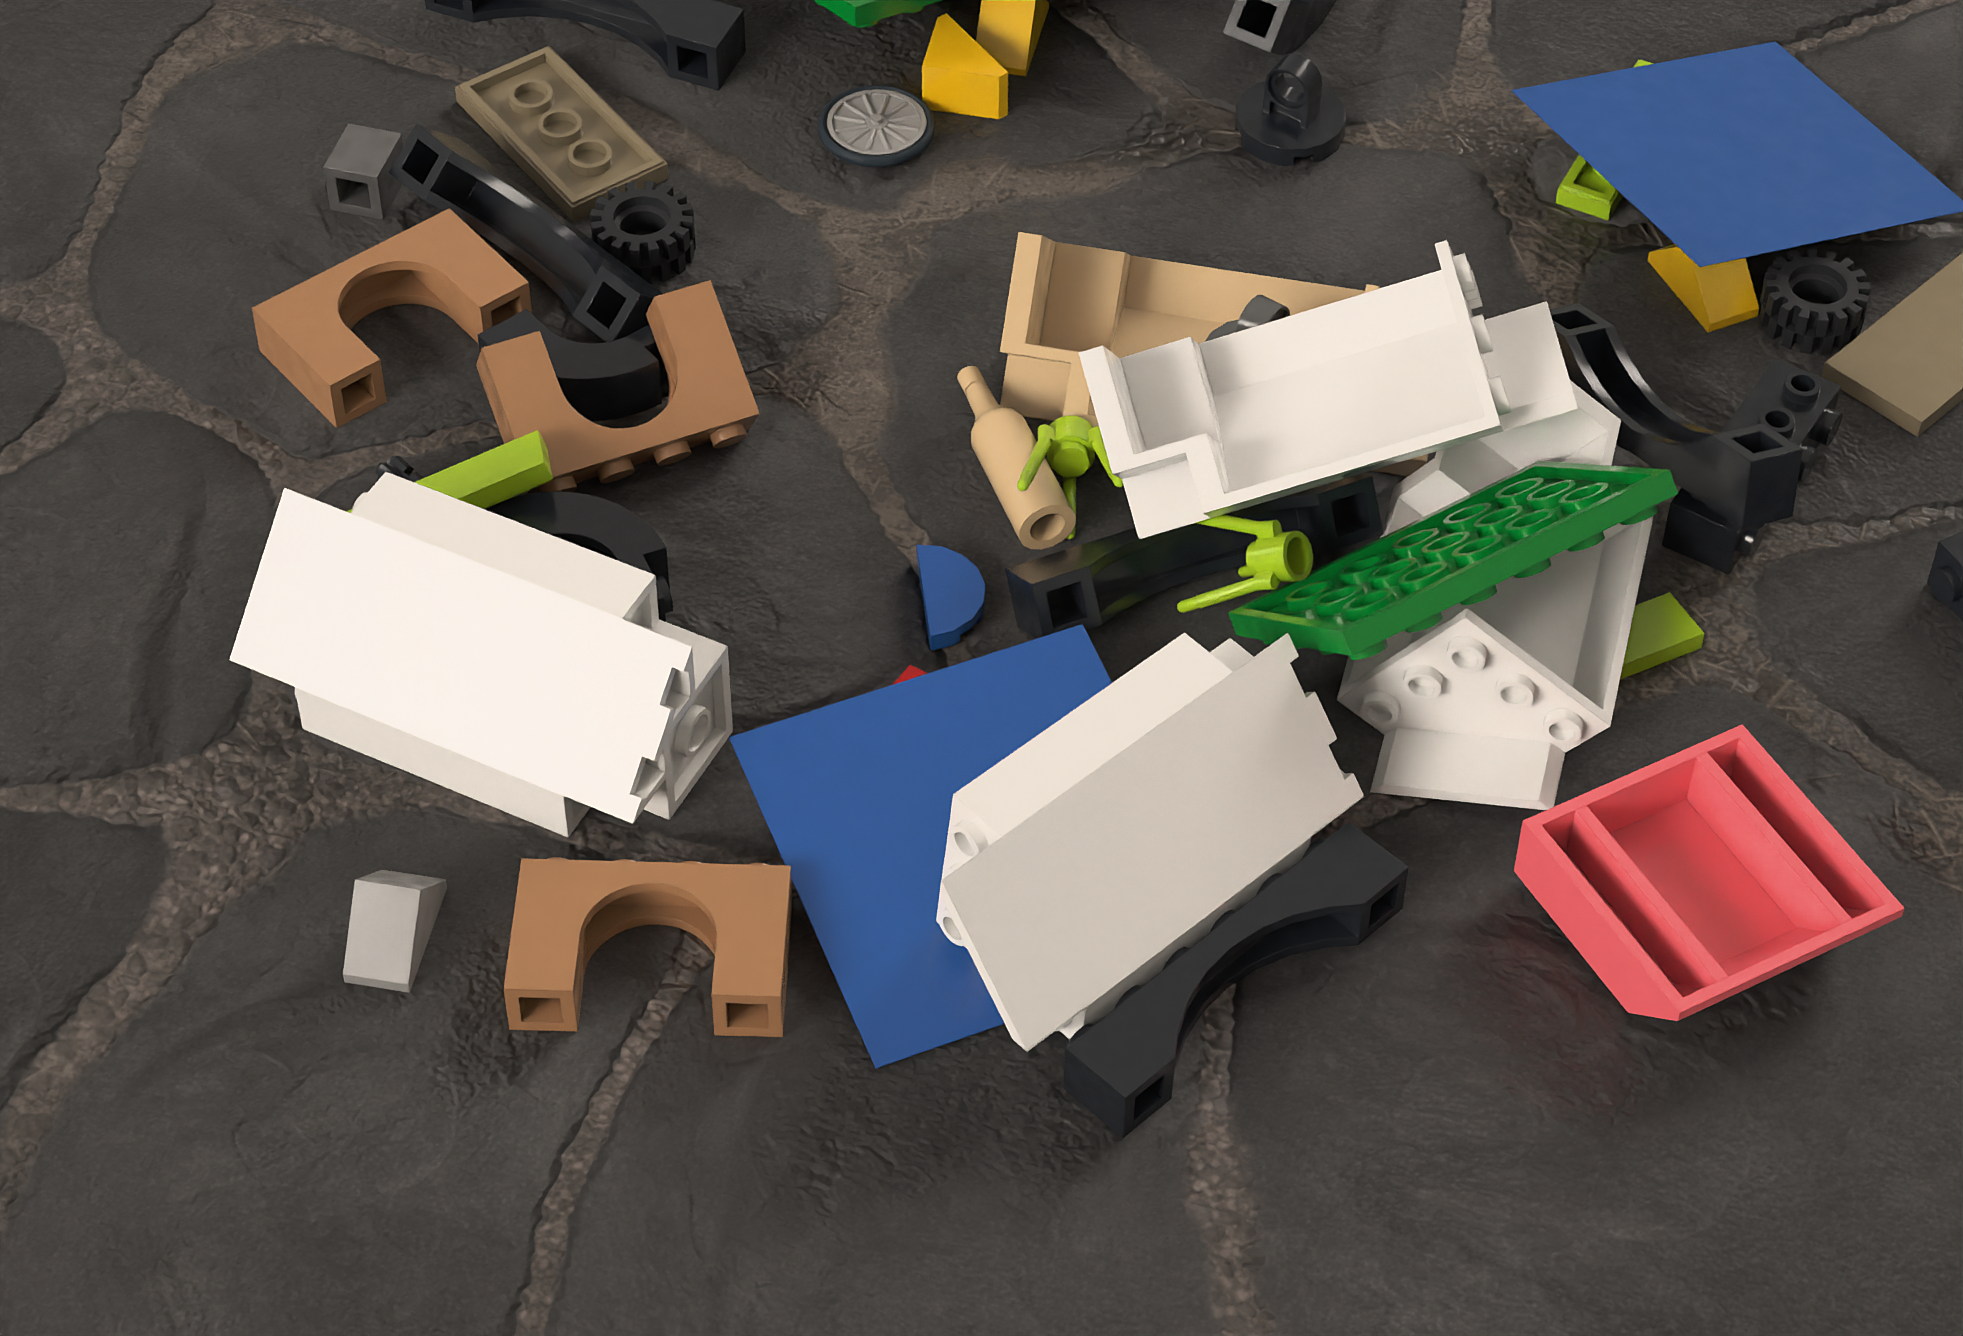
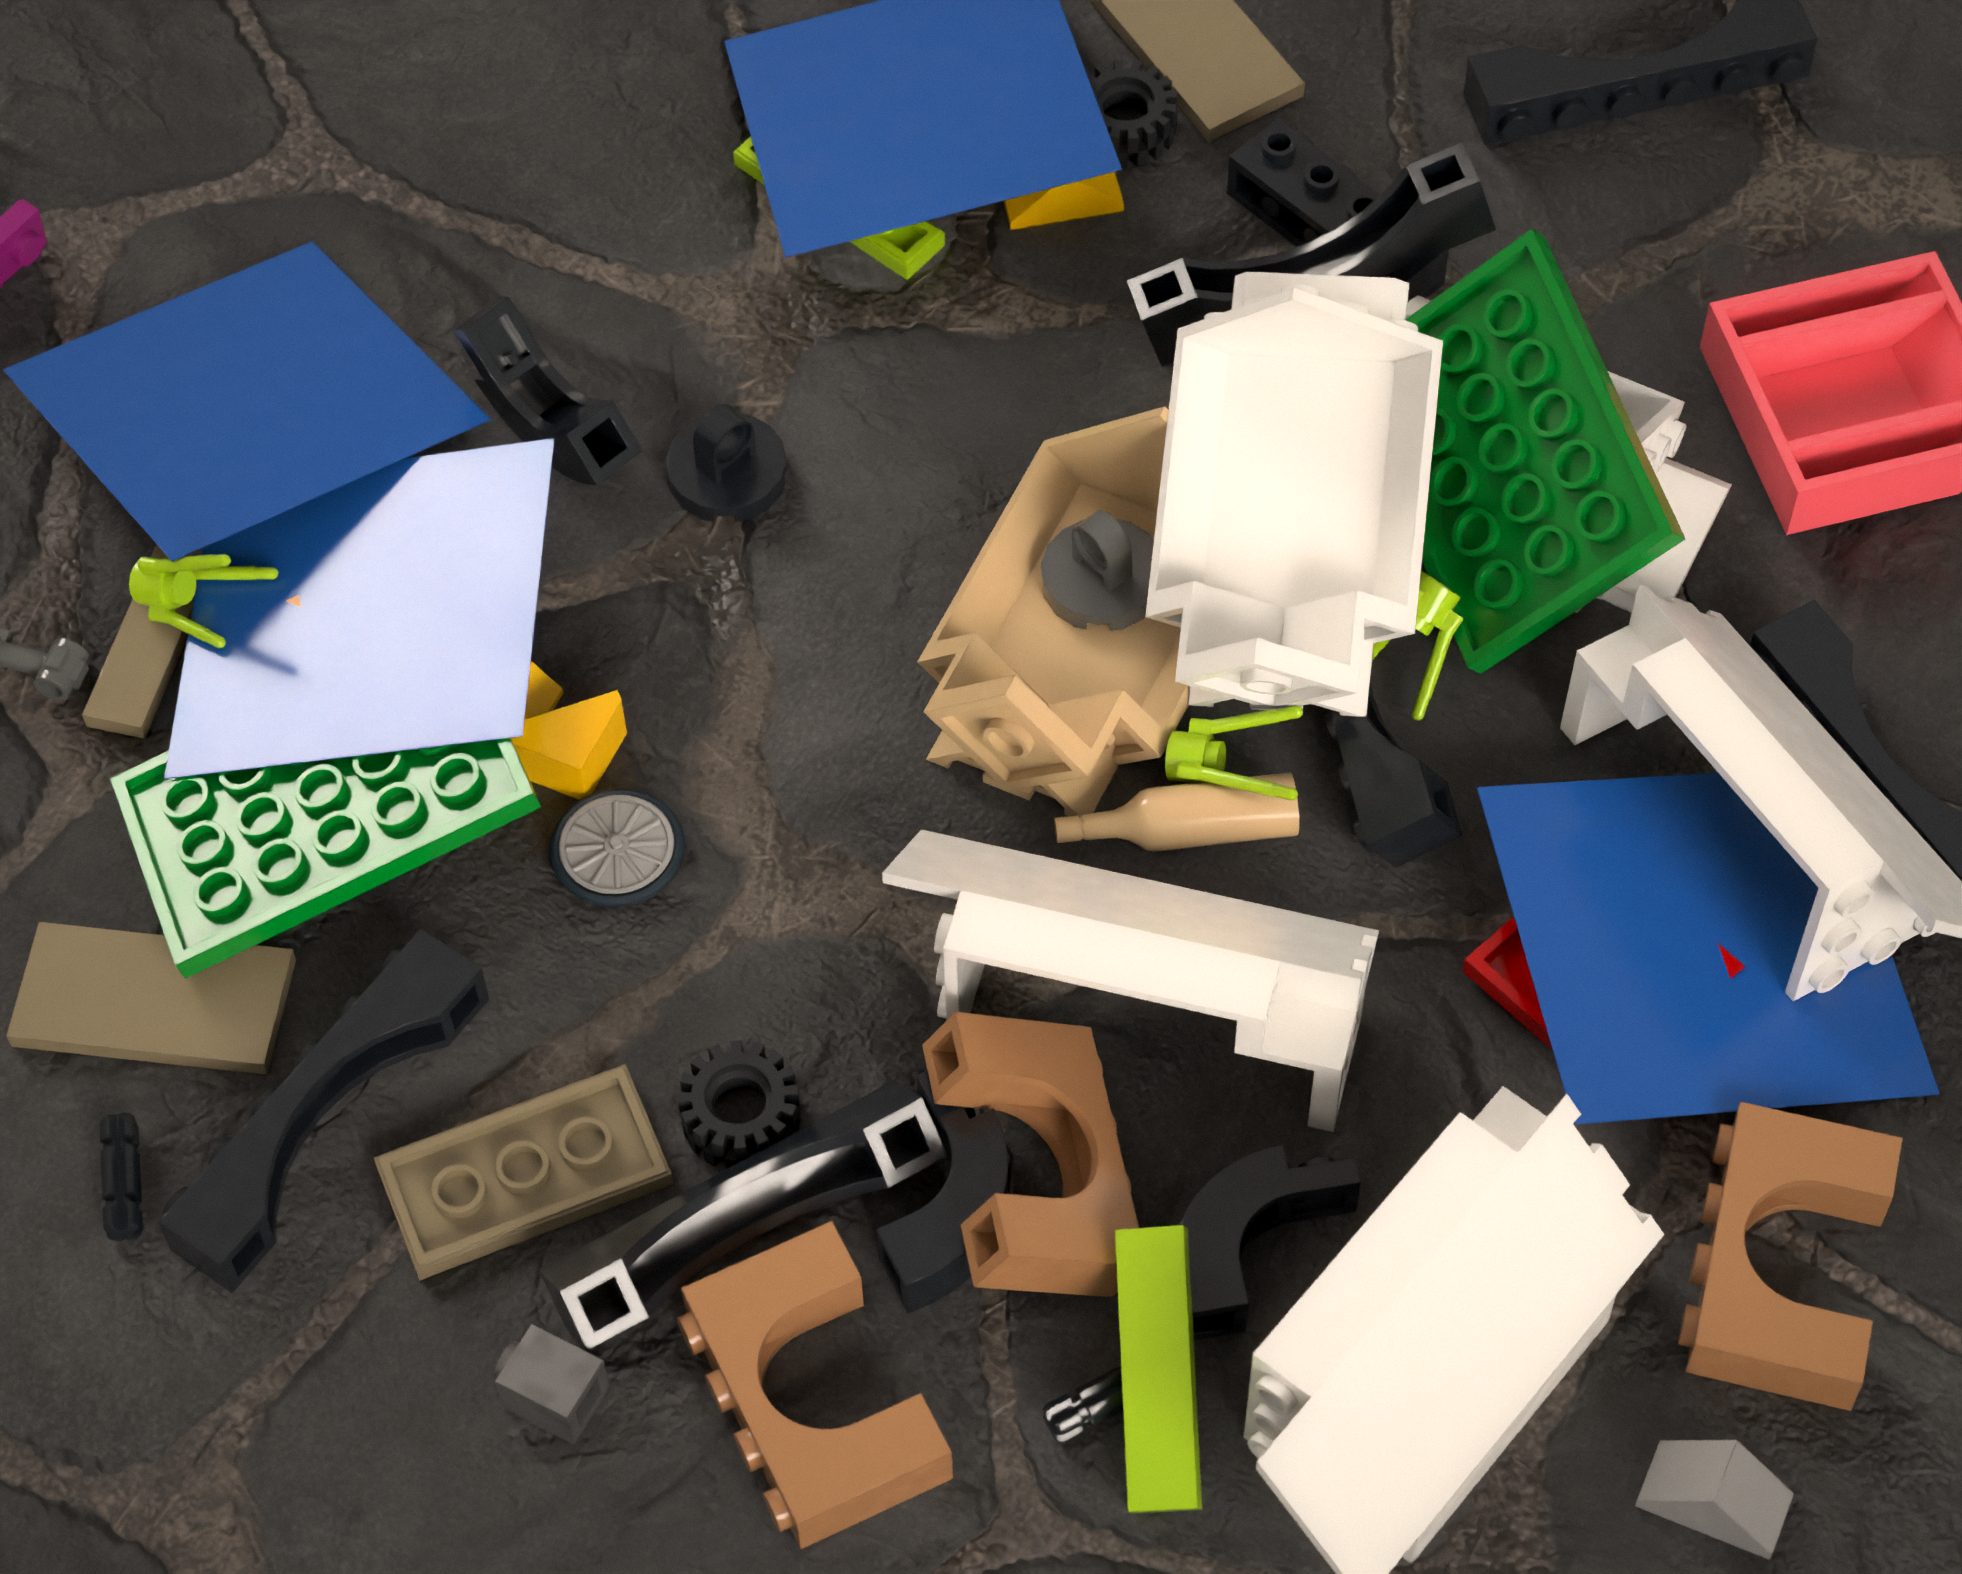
camera: 75 degrees left, 10 degrees up
(818, 418) = (1275, 971): none -> white panel
(950, 594) = (1363, 904): blue tile -> none

